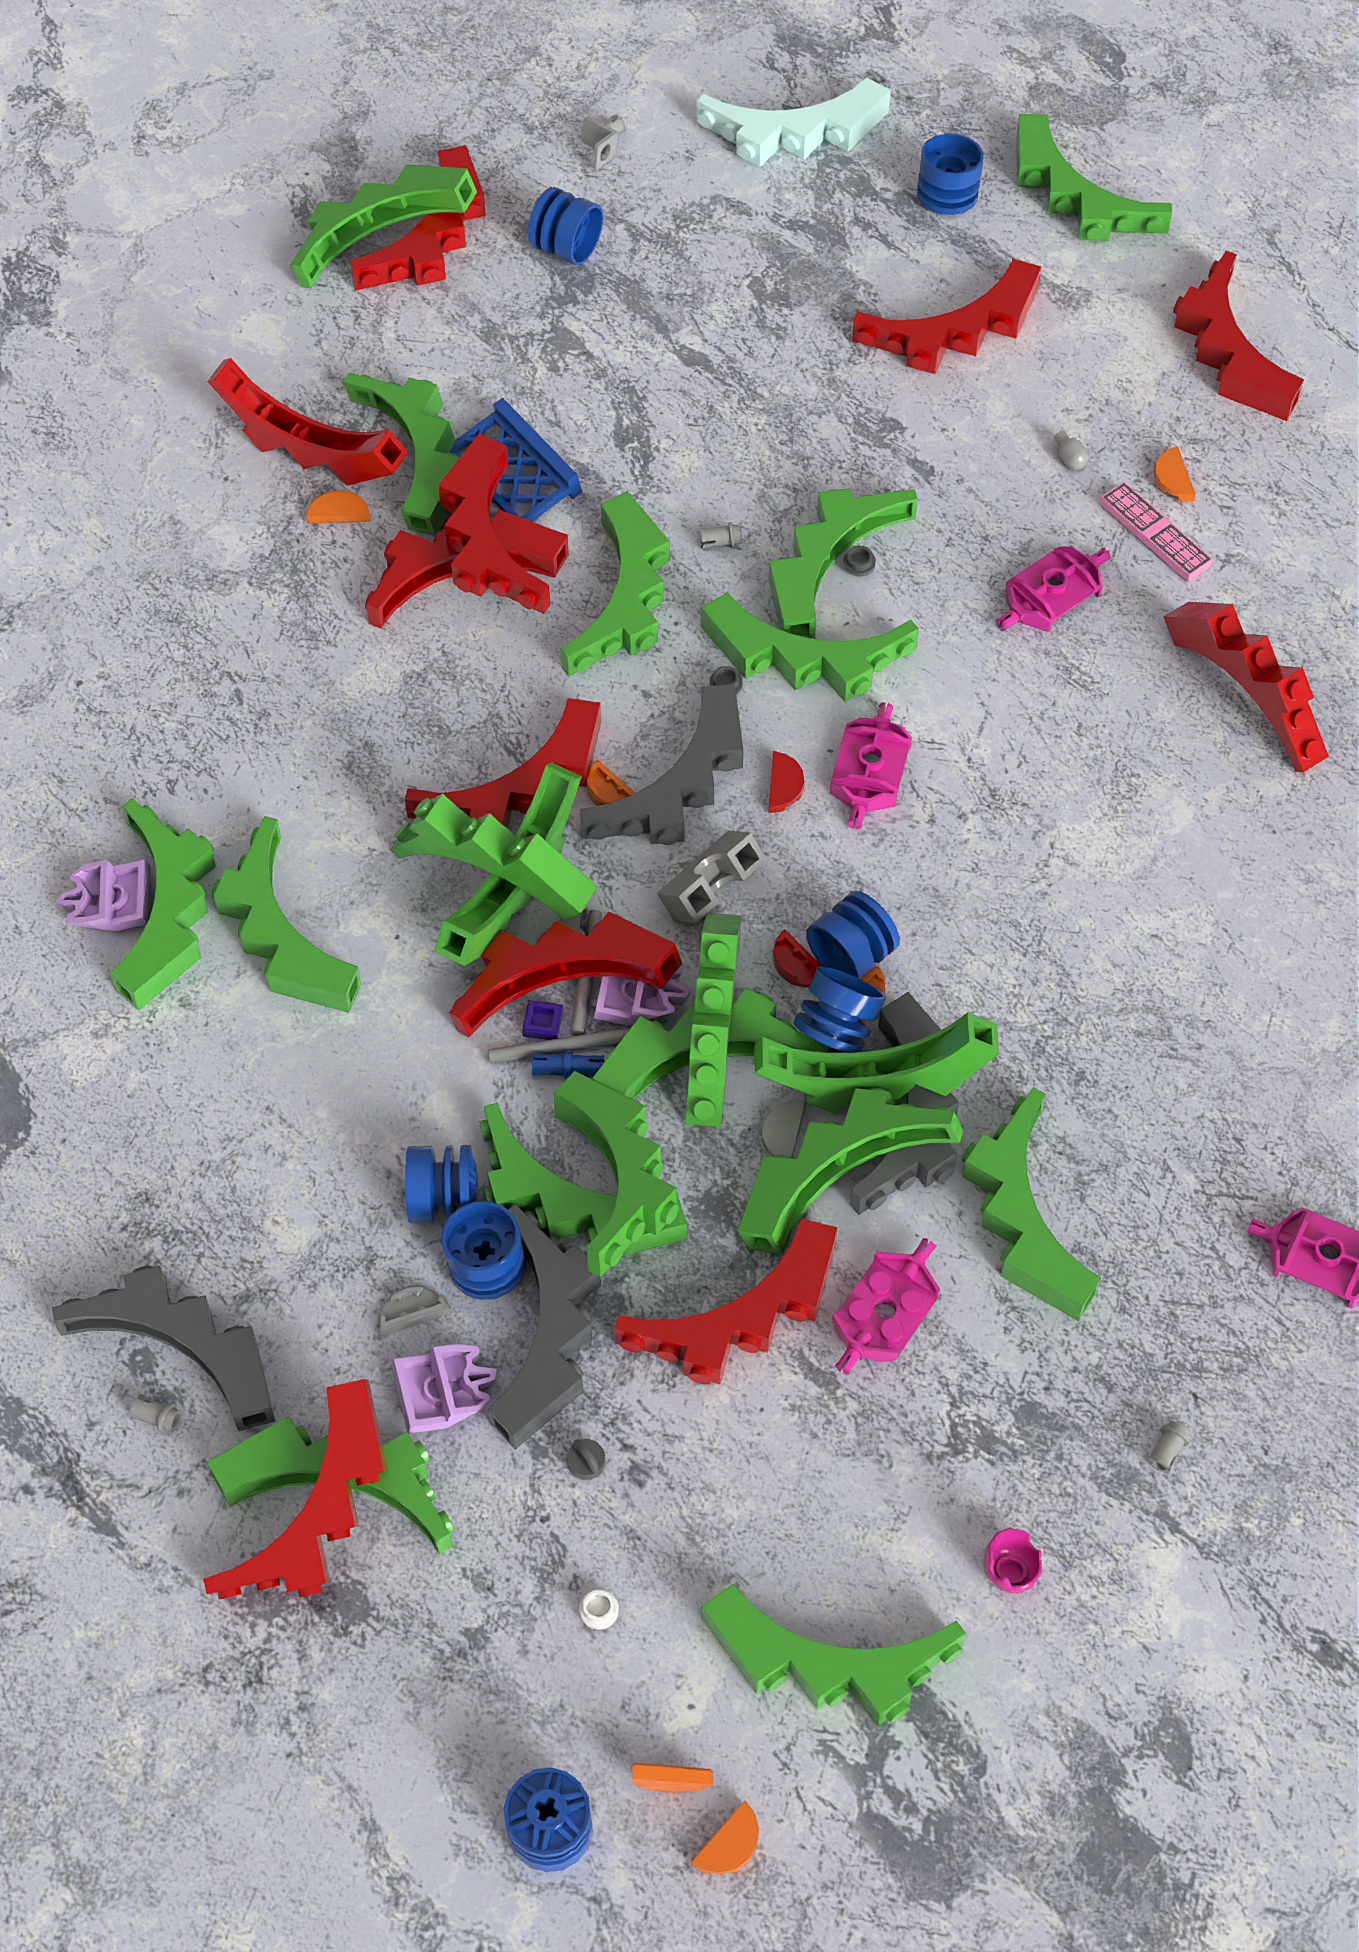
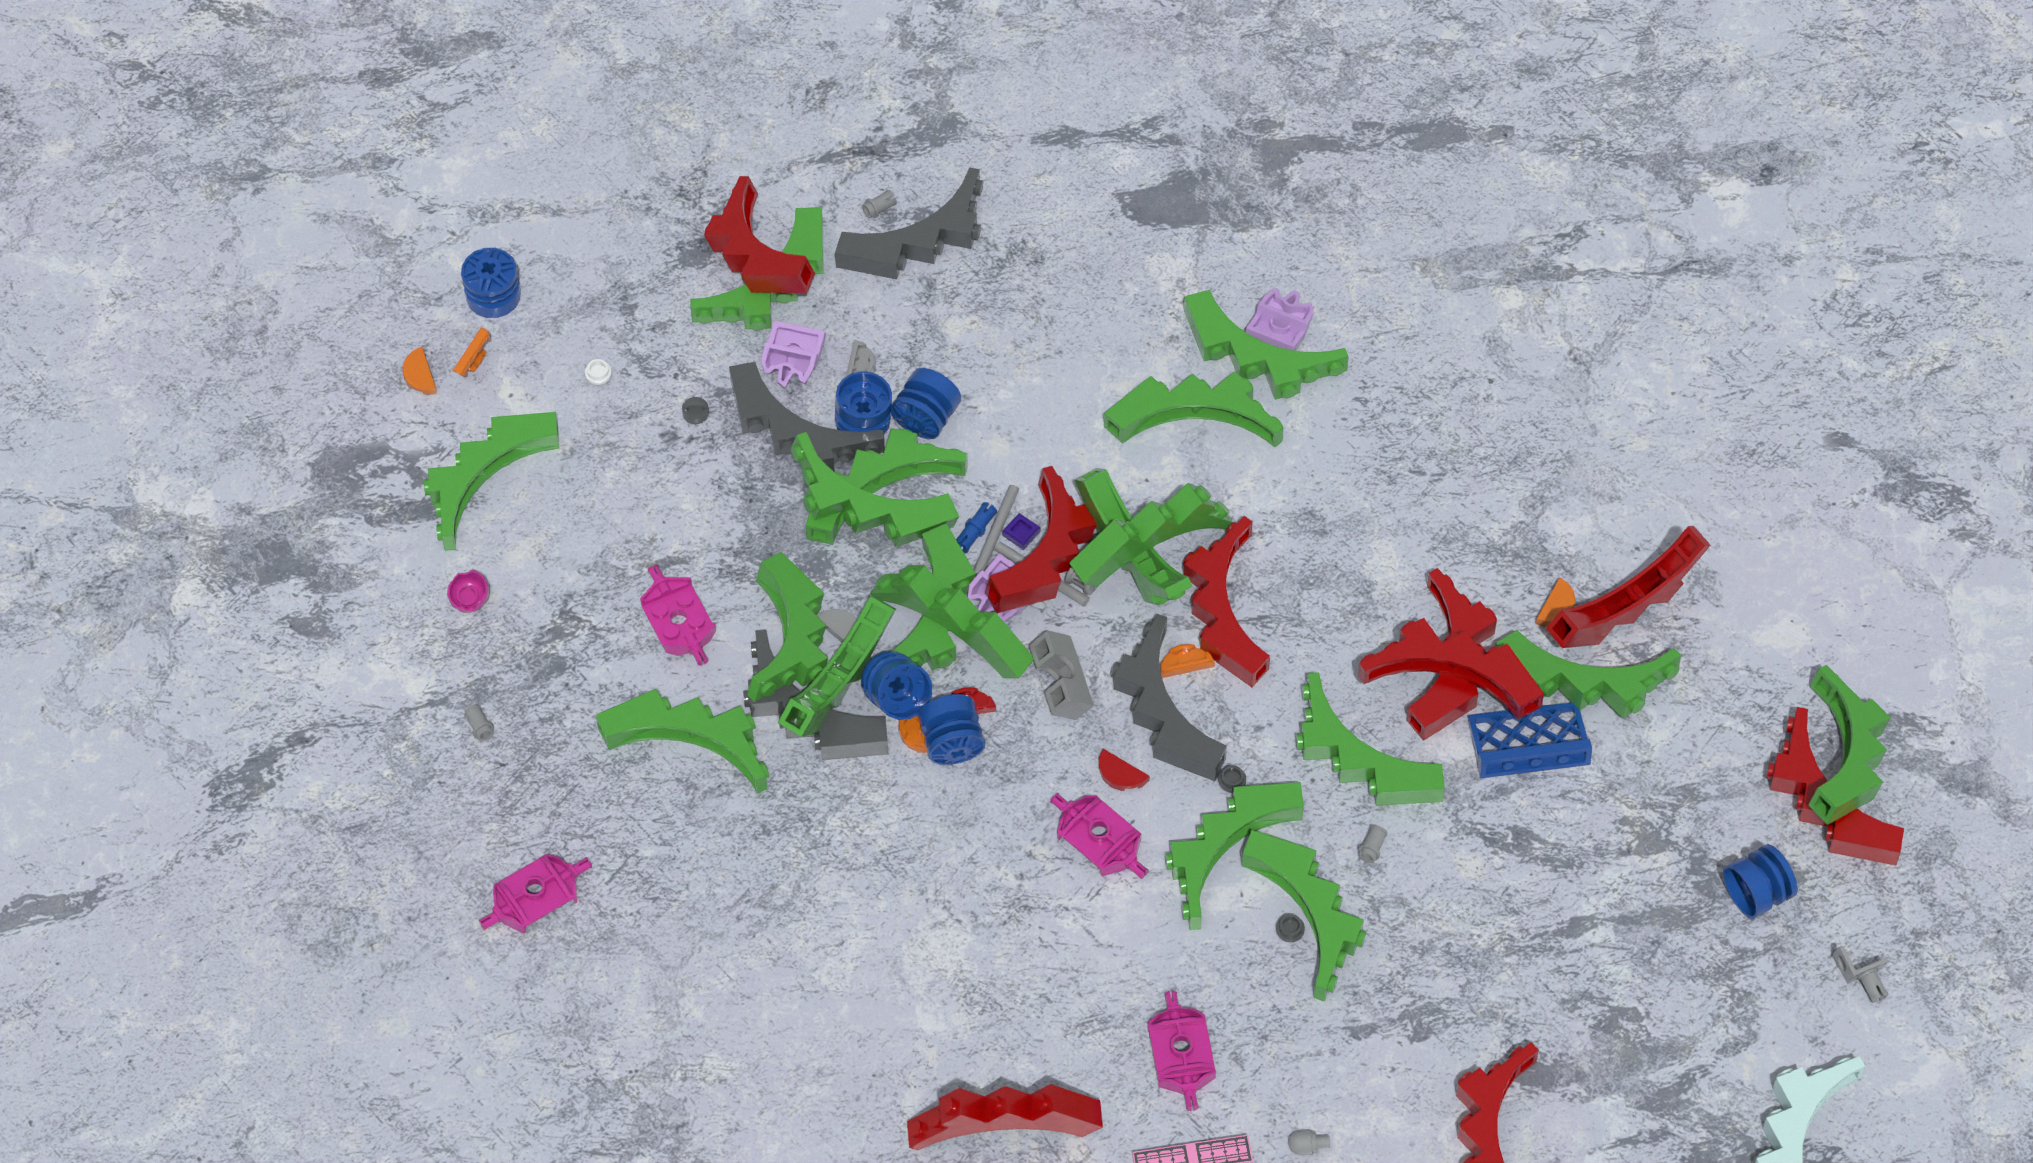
camera: 120 degrees right, 0 degrees up
(748, 1321) = (723, 506): red arch -> none

